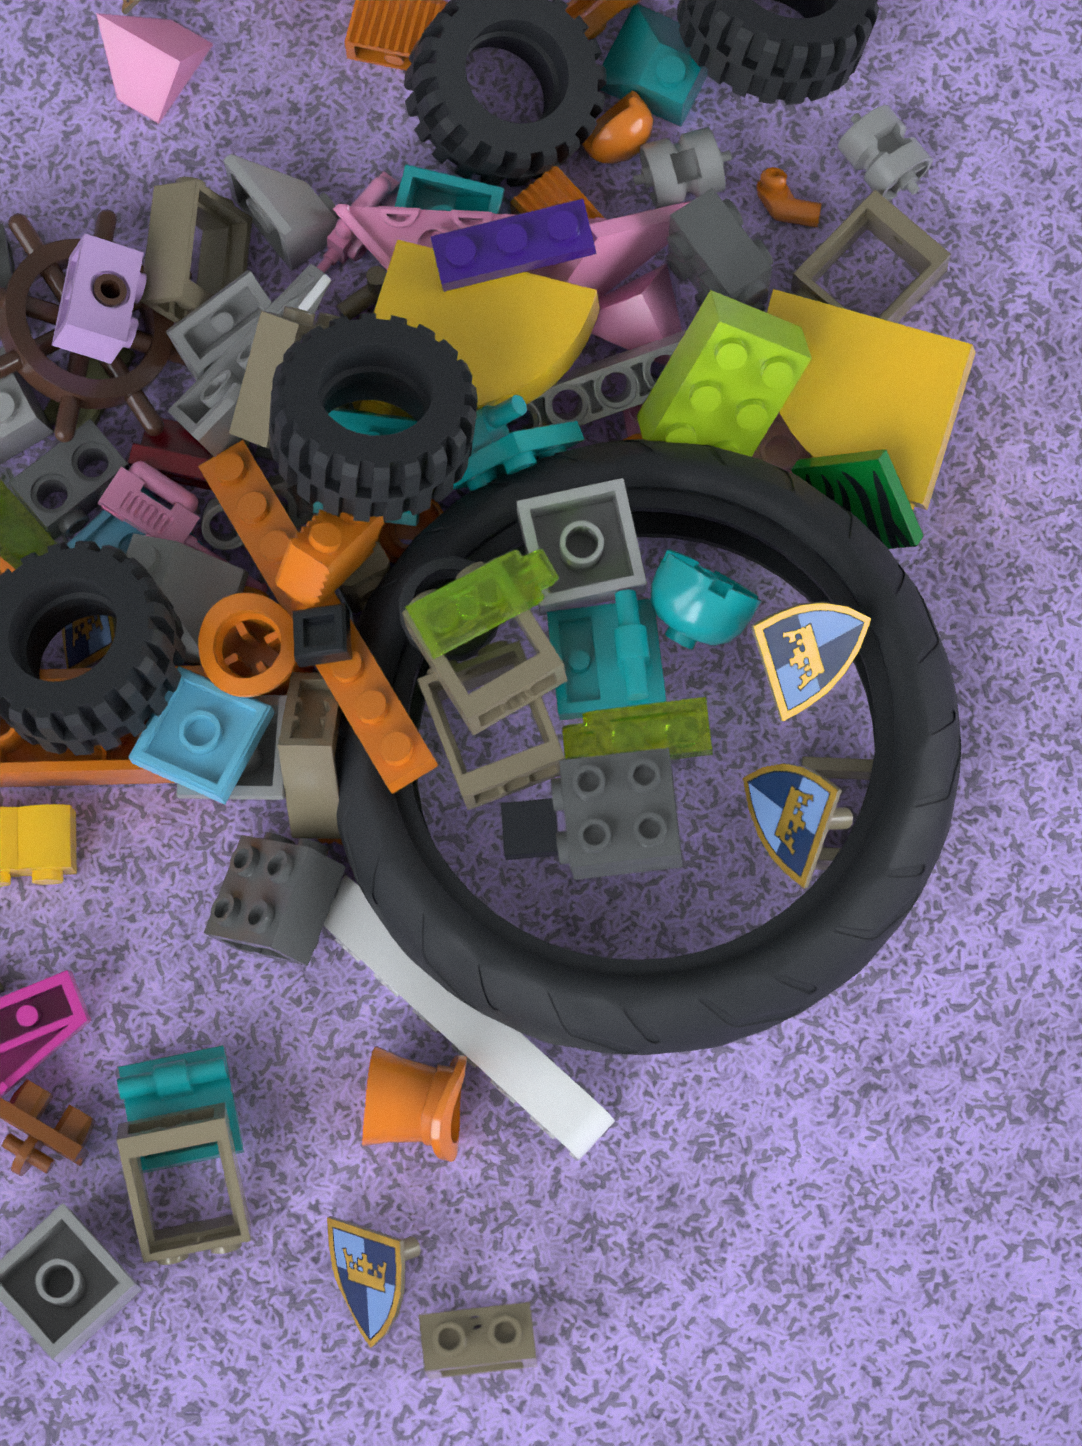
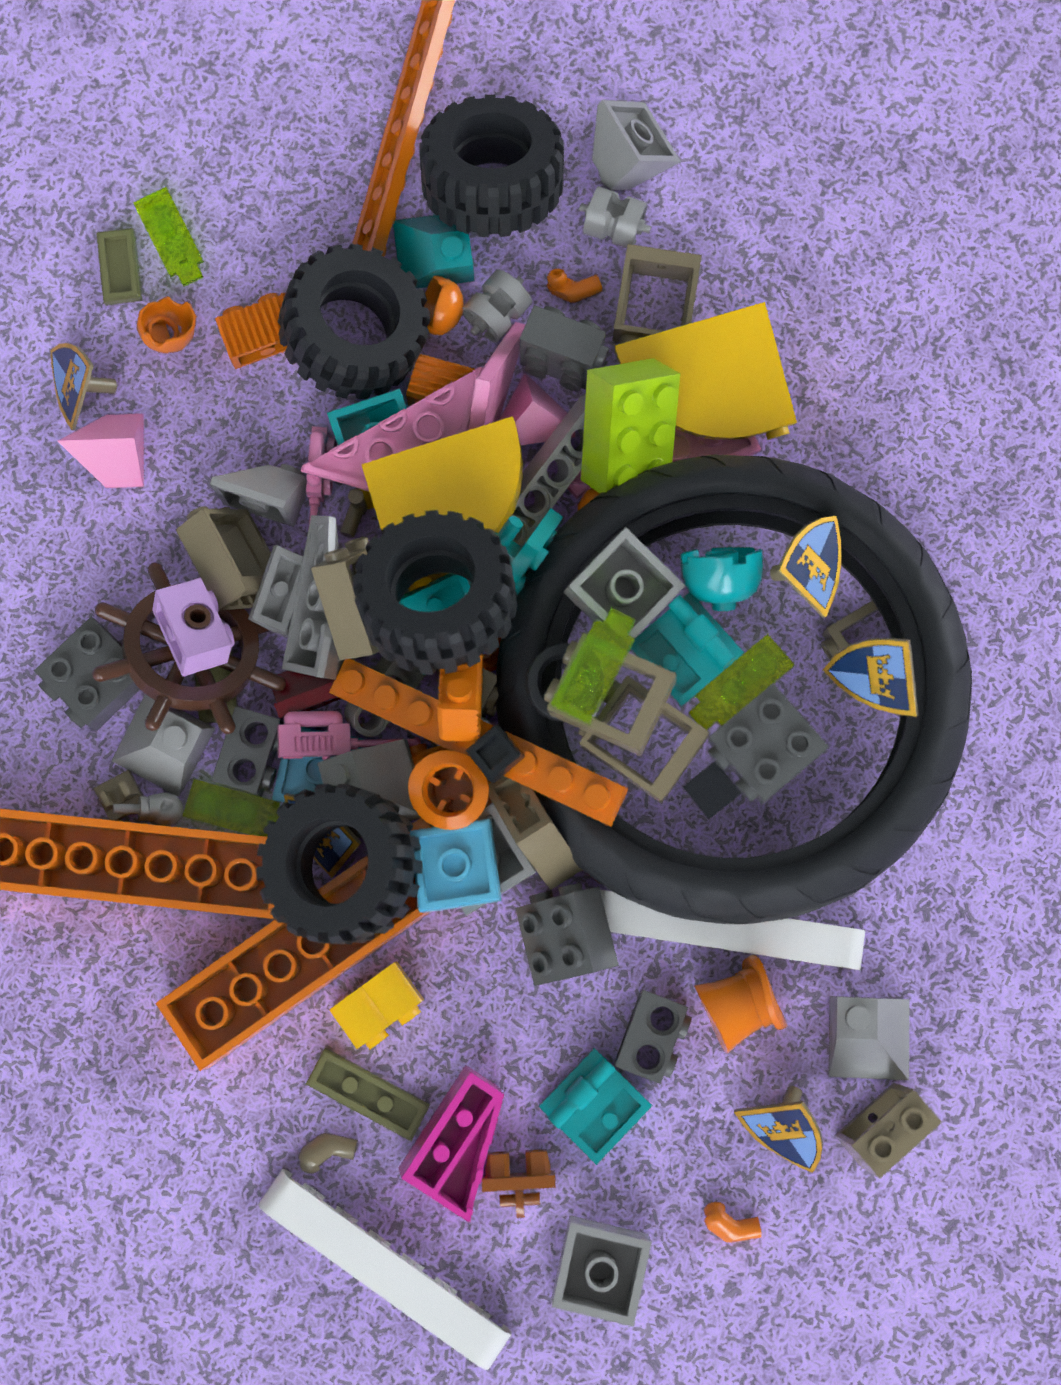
camera: 35 degrees left, 5 degrees up
(175, 1132) = (609, 1129): dark tan window -> none
(233, 1342) = (727, 1227): none -> orange arm
(286, 1064) = (642, 1033): none -> dark grey brick
(513, 245) = (440, 420): dark purple plate -> none
(537, 1241) = (869, 1038): none -> light grey slope
(869, 490) = (756, 434): green tile -> none
(961, 82) = (629, 145): none -> light grey slope

